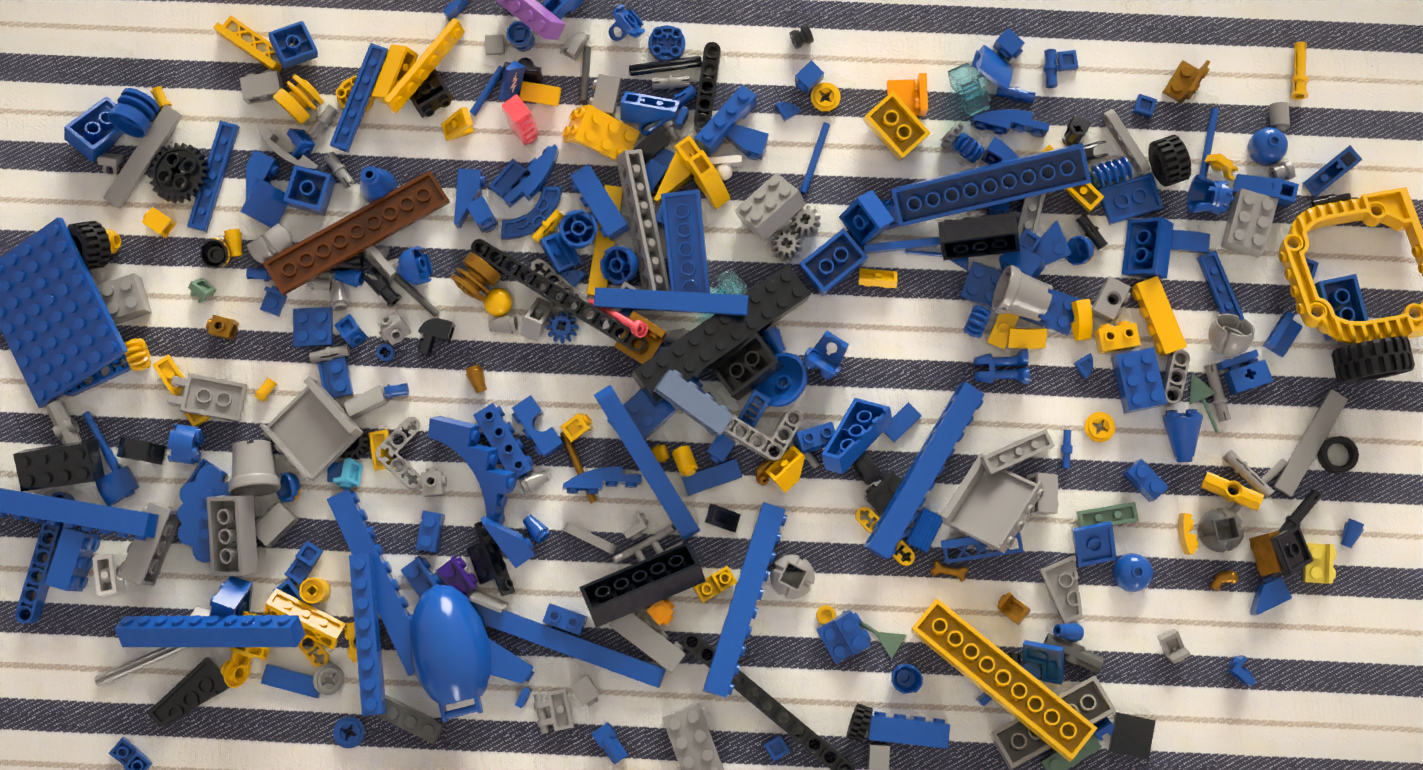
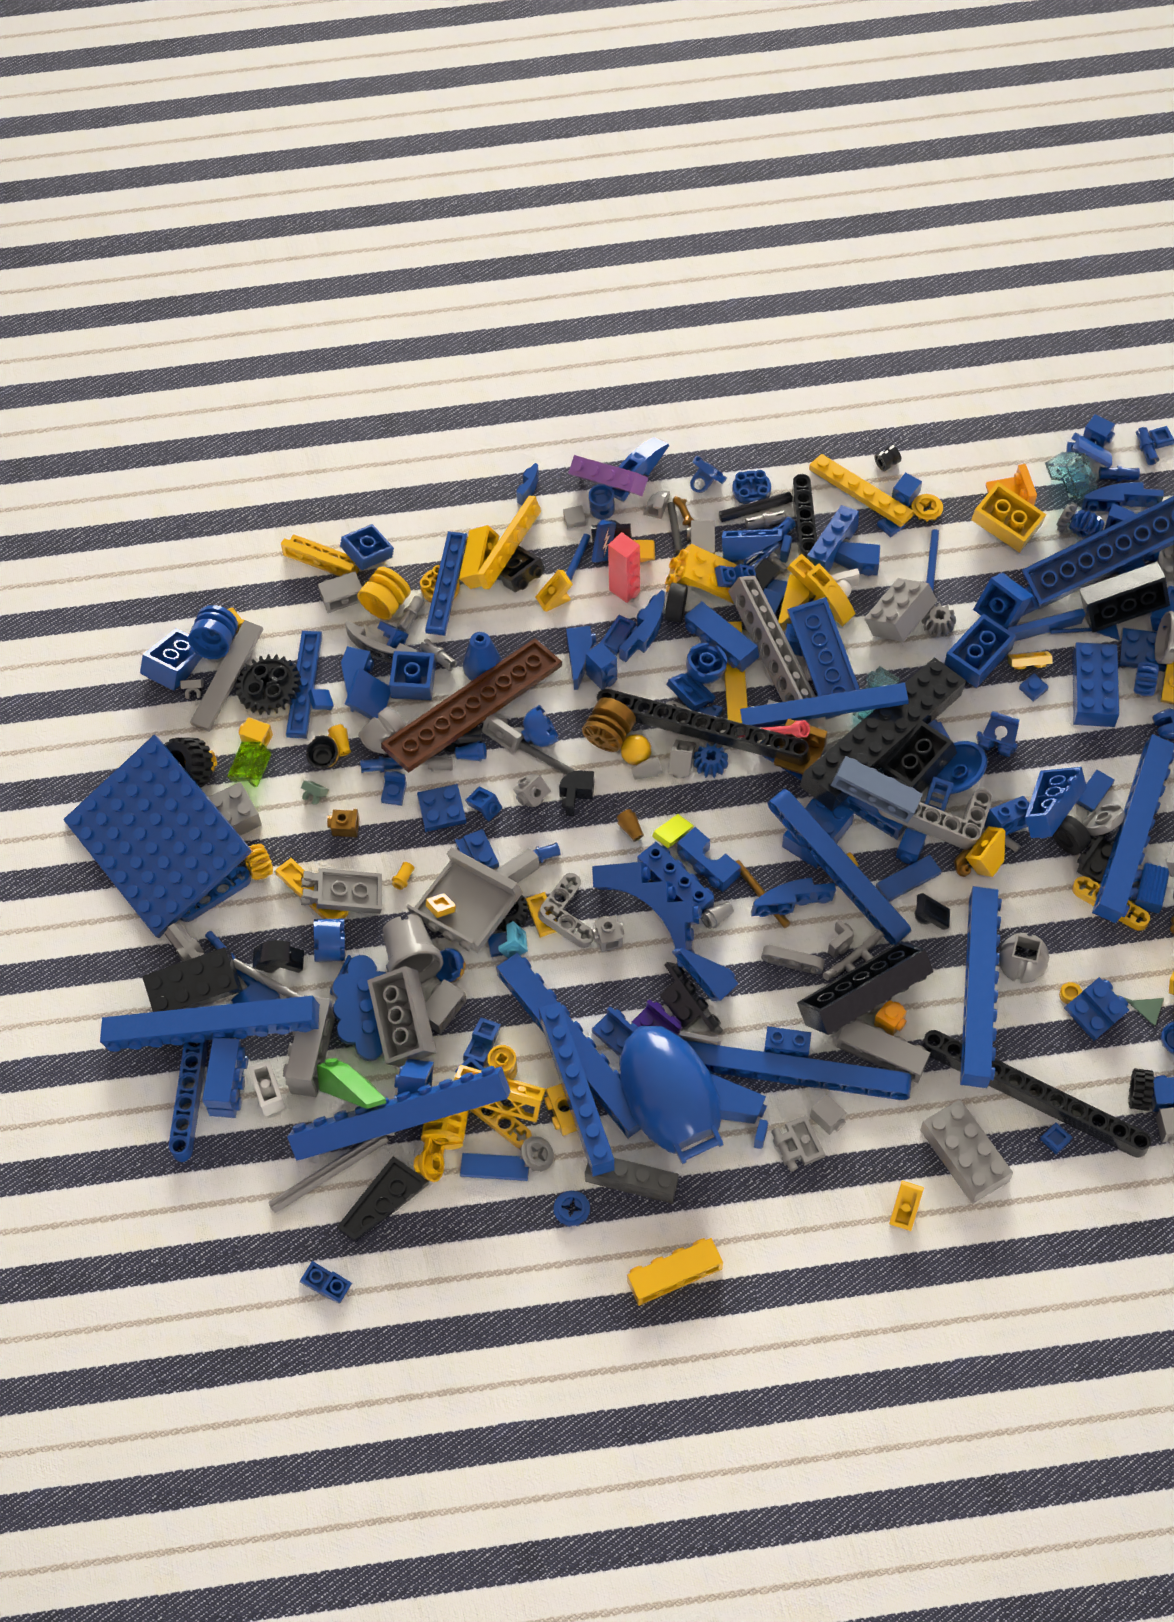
camera: 10 degrees left, 20 degrees down
(128, 474) = (265, 979): none -> light grey bar
(149, 251) = (249, 763): none -> clear neon green bracket
(176, 593) = (347, 1084): none -> bright green wedge
(224, 196) = (320, 699): none -> blue tile
(289, 430) = (440, 905): none -> yellow plate
(329, 353) = (478, 824): light grey pin -> none
(339, 298) = (464, 774): light grey cone -> none
(382, 287) = (508, 755): black piece -> none
(390, 357) = (530, 814): blue bush -> none
(430, 531) = (616, 982): blue brick -> none
(511, 392) = (672, 831): none -> neon yellow tile
(532, 221) = (655, 667): blue tile -> none
(536, 529) = (732, 960): blue cone -> none
(548, 226) = (674, 665): yellow pin -> none
(565, 159) = (676, 602): none -> black tyre
(577, 426) = (750, 851): yellow bracket -> none
(597, 58) = (681, 504): none -> pearl gold piece
(607, 739) = (865, 1160): blue piece -> none
(619, 264) = (757, 687): blue cylinder -> none
(625, 141) = (727, 576): none -> blue slope
(685, 461) = (876, 864): yellow brick -> none
(715, 584) = (941, 983): yellow slope -> none
(767, 67) = (861, 490): none -> yellow plate
(791, 240) = (926, 644): light grey gear -> none
(874, 306) = (1033, 687): none -> blue plate
(899, 457) = (1104, 820): none -> light grey tile
(930, 316) = (1095, 684): none -> blue brick

